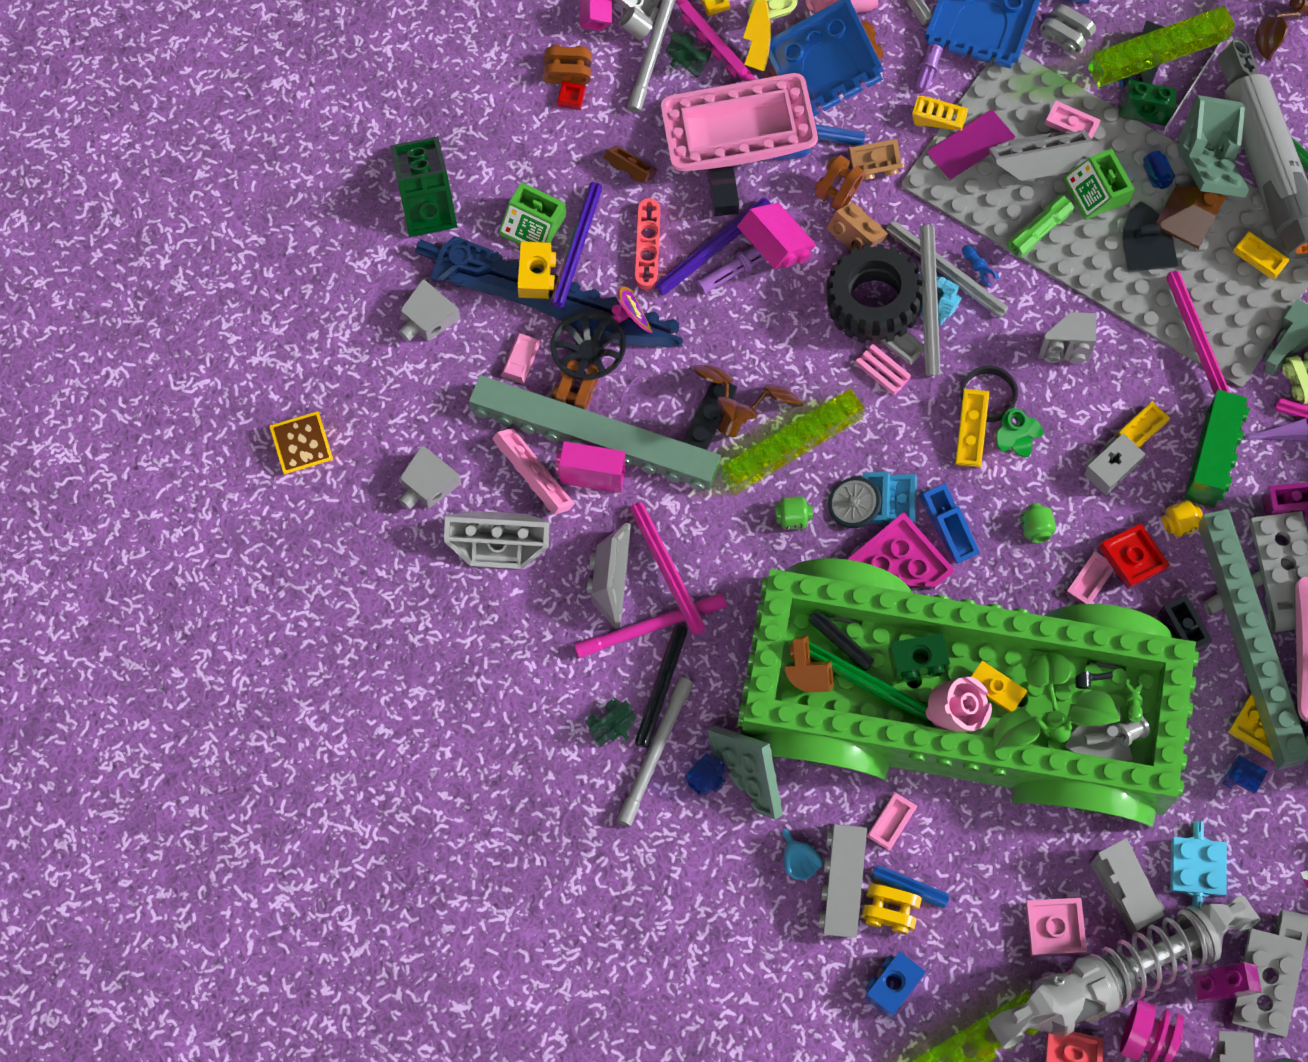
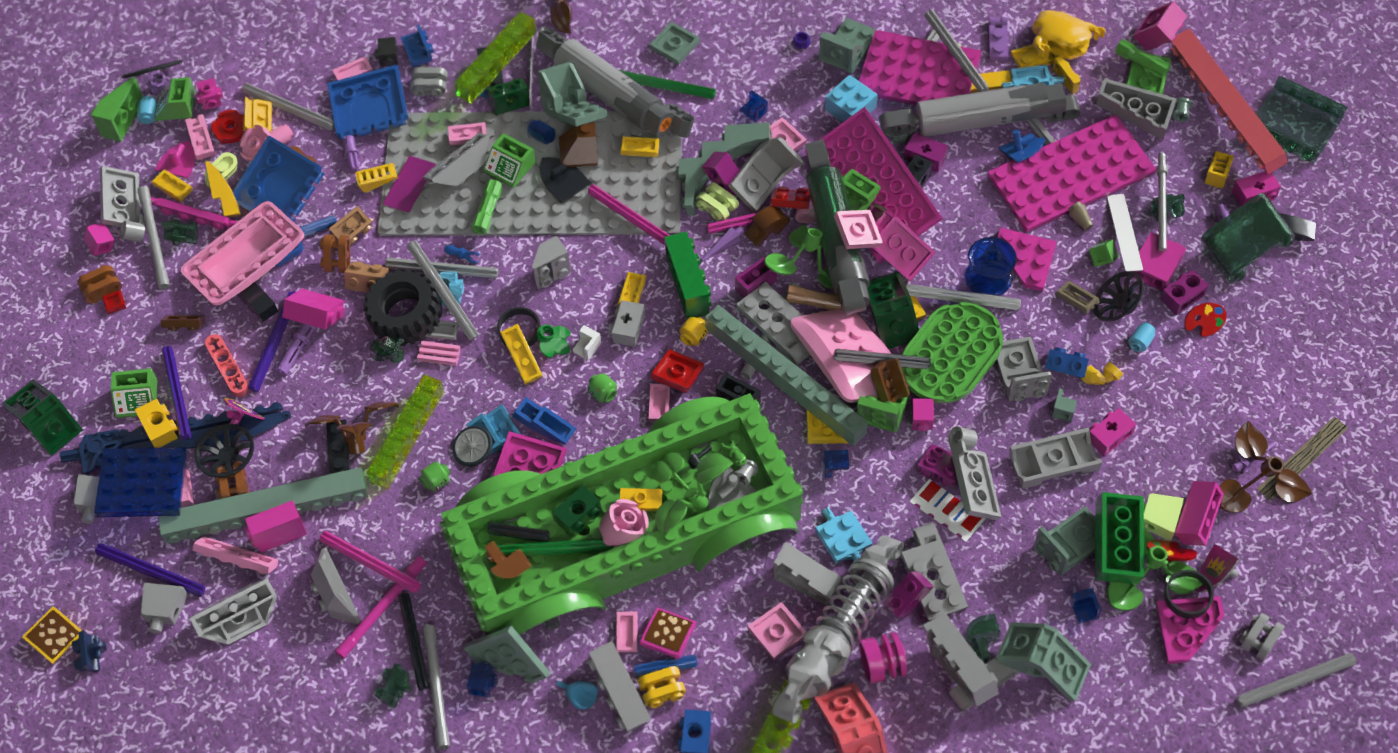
camera: 30 degrees left, 10 degrees down
(328, 484) = (90, 650): none -> dark blue hips
(438, 431) = (149, 569): none -> dark purple axle
(482, 328) = (141, 482): none -> clear blue plate
(829, 333) = (388, 349): none -> hips
(935, 852) = (668, 633): none -> slope
(1054, 459) = (588, 343): none -> white panel

